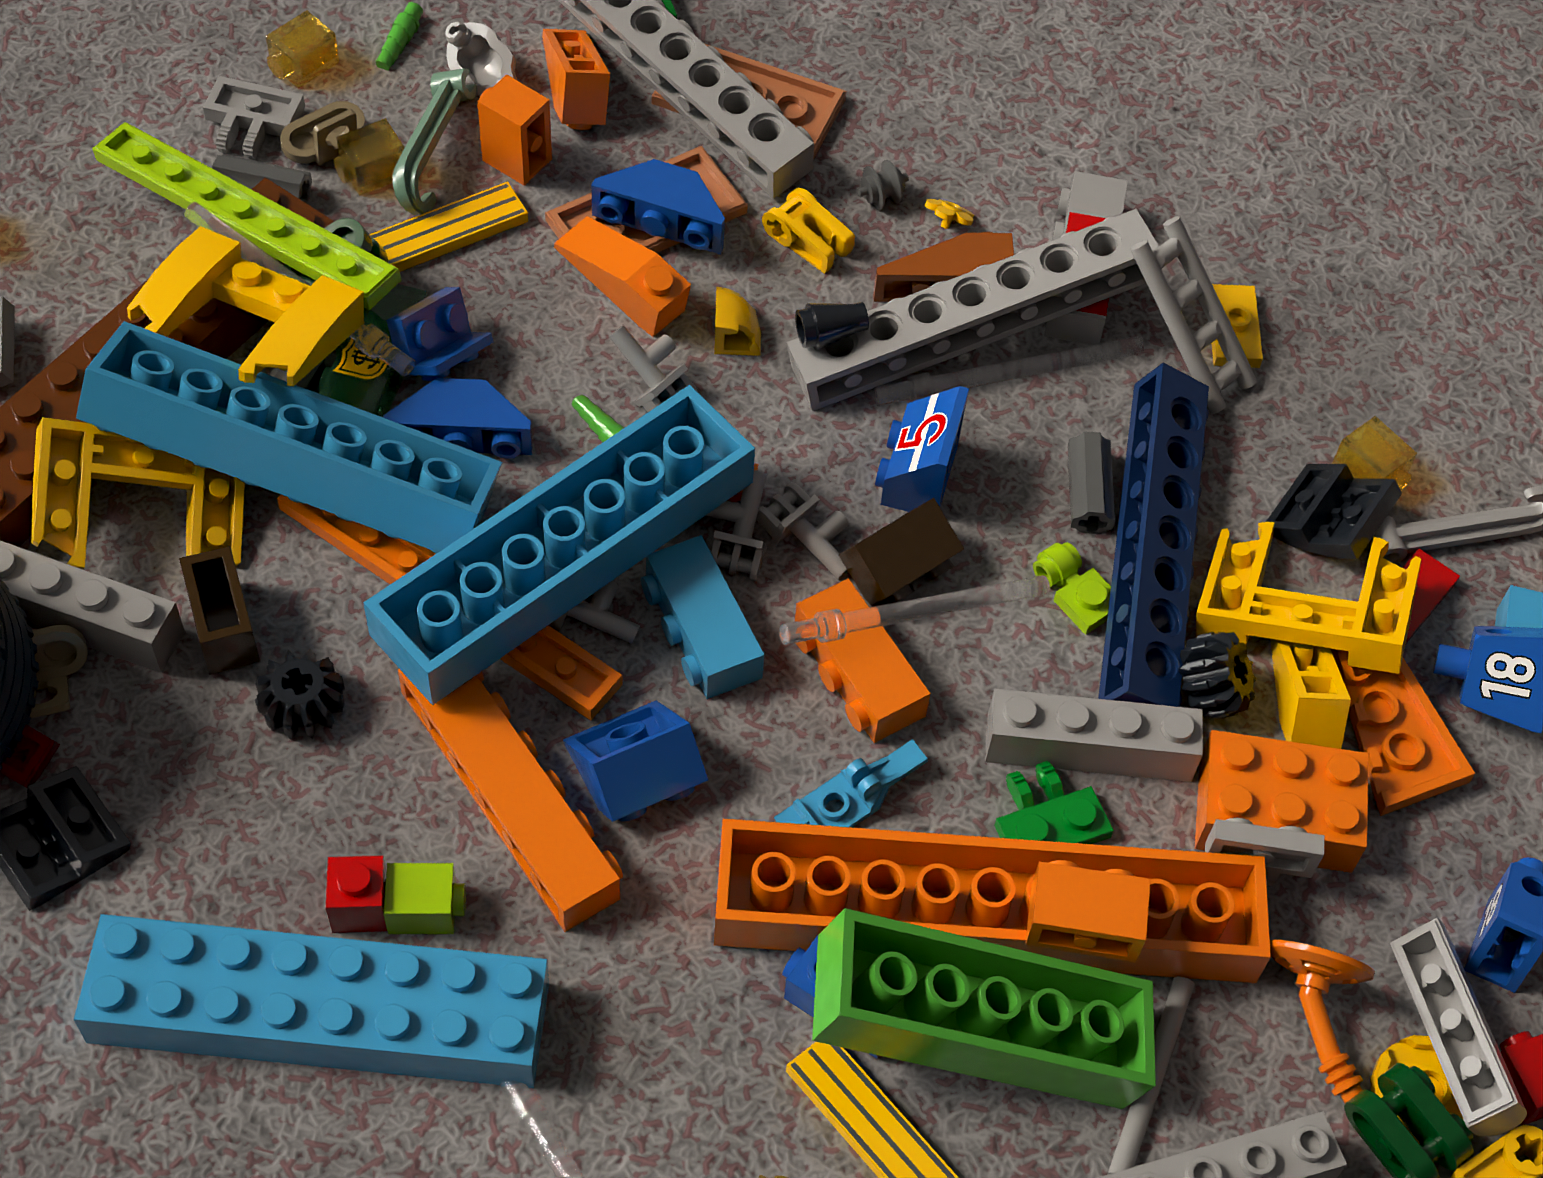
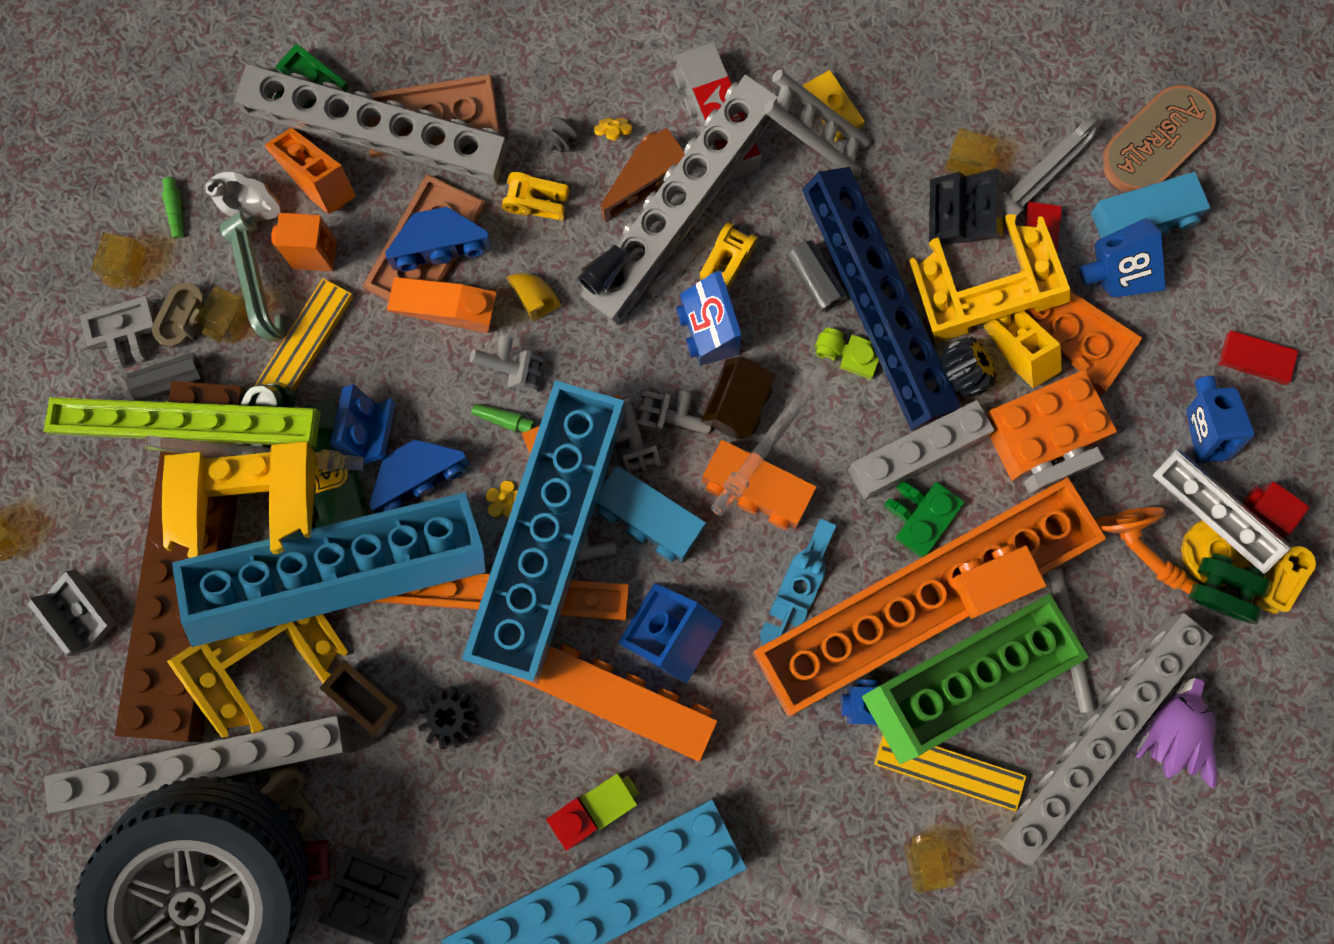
camera: 25 degrees left, 20 degrees up
(999, 406) = (730, 244): none -> yellow piece

